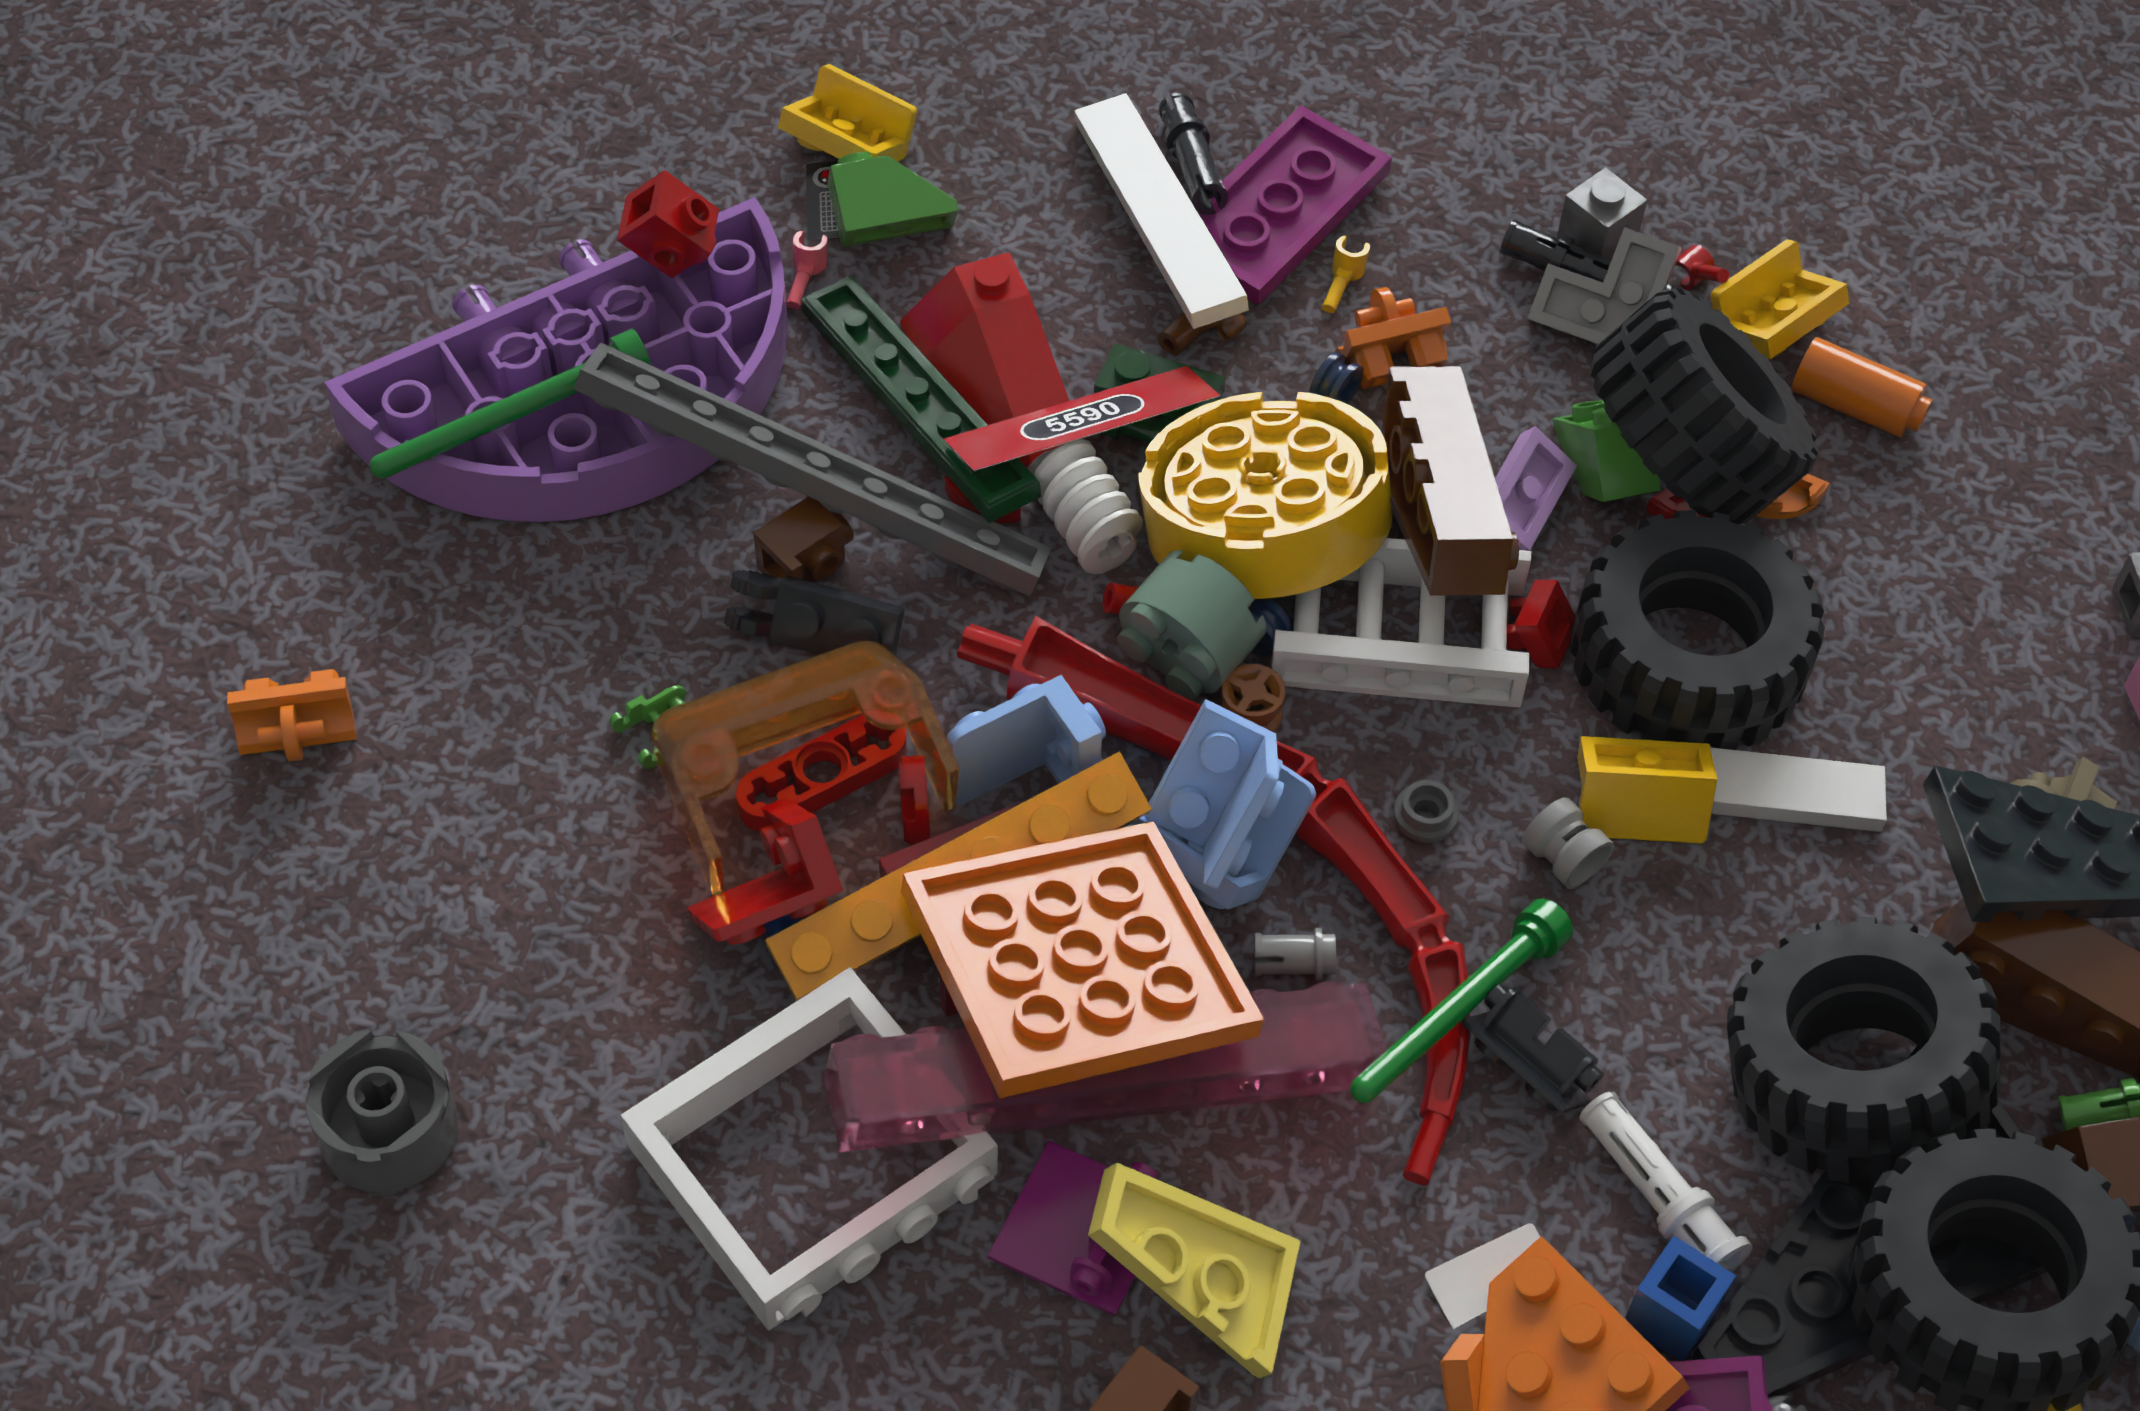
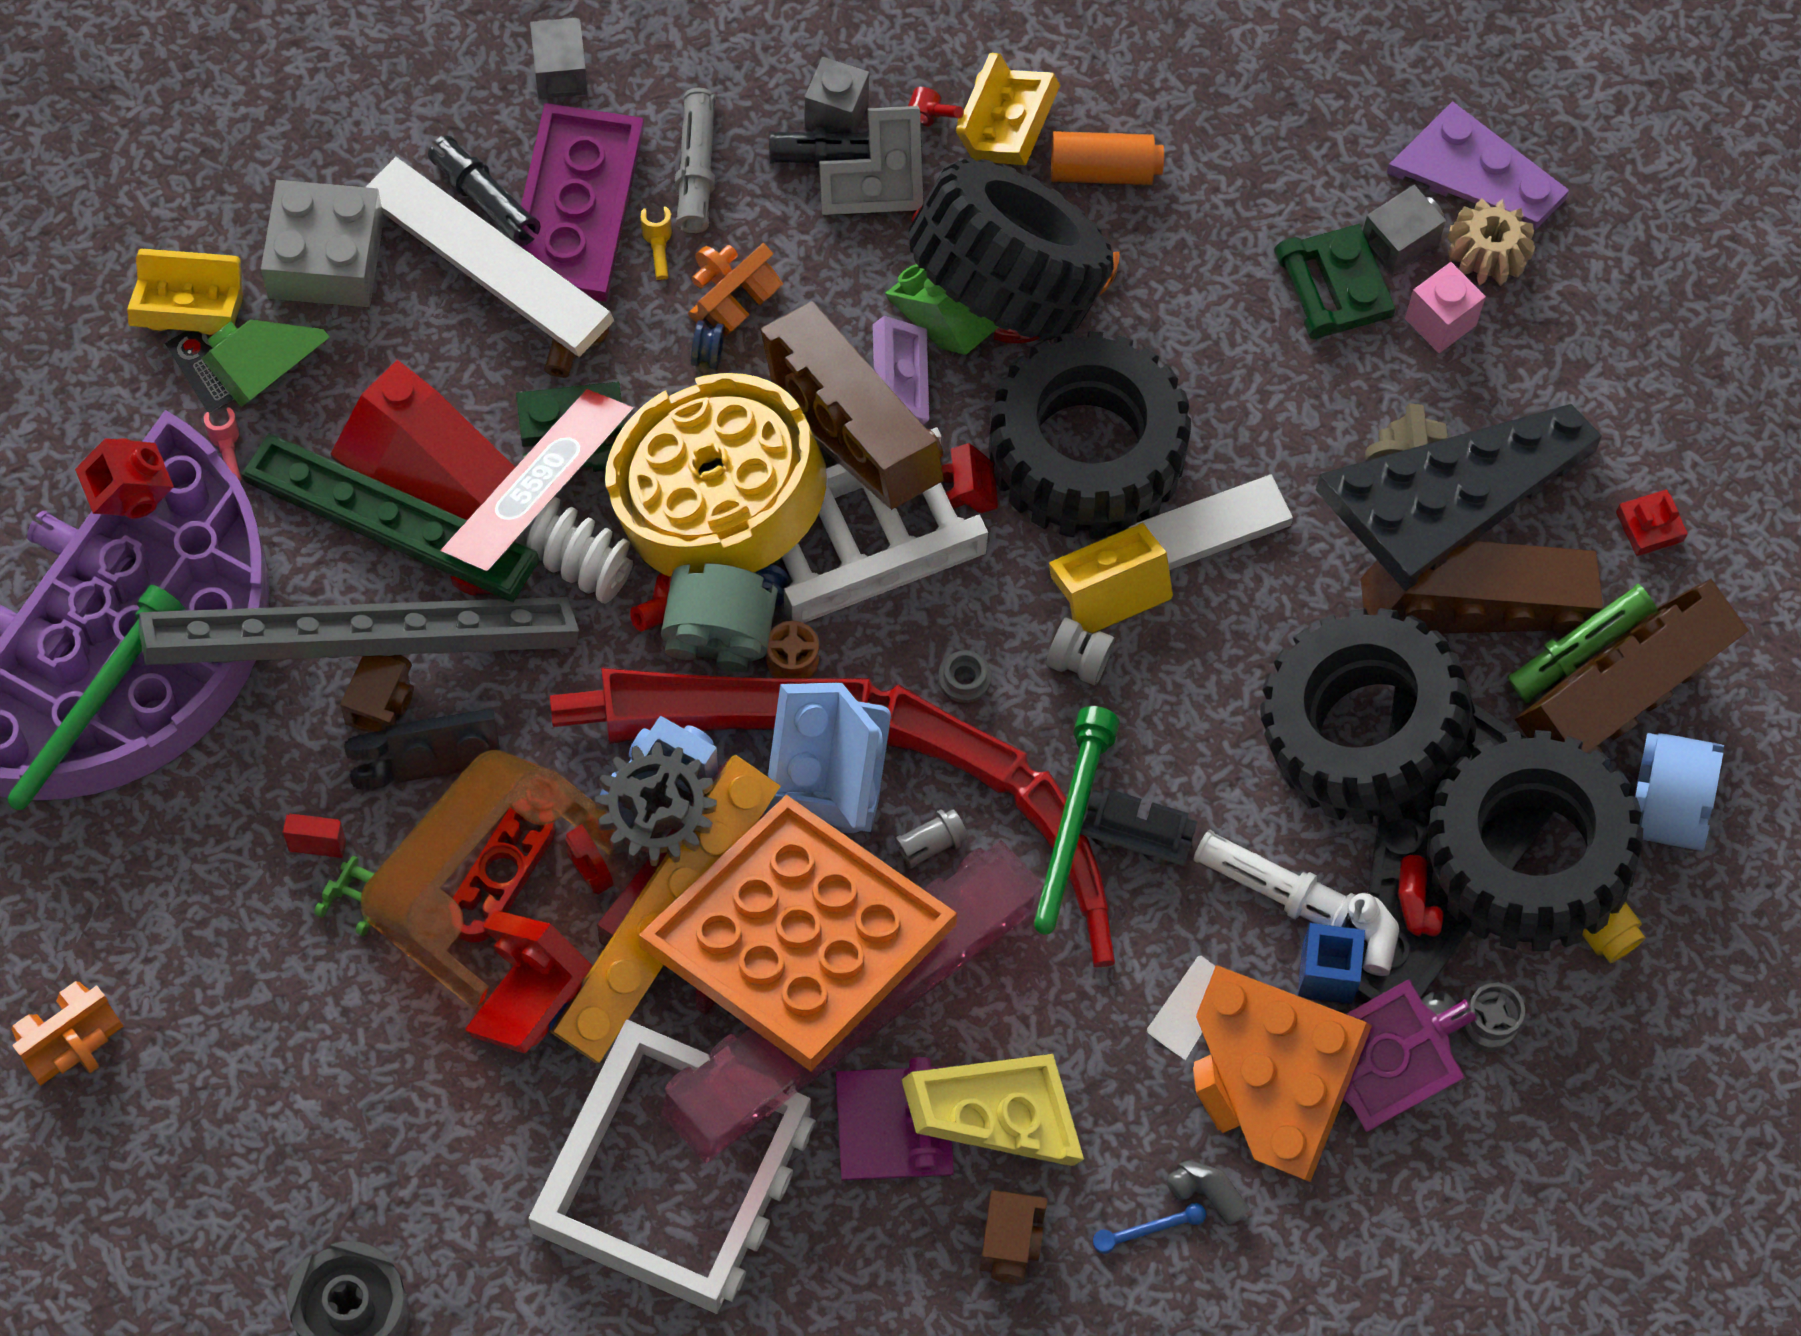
camera: 30 degrees left, 10 degrees up
(653, 646) = (314, 835): none -> red tile
(995, 781) = (675, 814): none -> dark grey gear
(1006, 134) = (322, 243): none -> light grey brick
(1336, 74) = (559, 58): none -> flat silver panel
(1416, 231) = (695, 176): none -> light grey pin
(1755, 1288) = (1380, 932): none -> white arm
(1814, 1275) = (1413, 896): none -> red arm
(2080, 613) = (1349, 275): none -> dark green plate

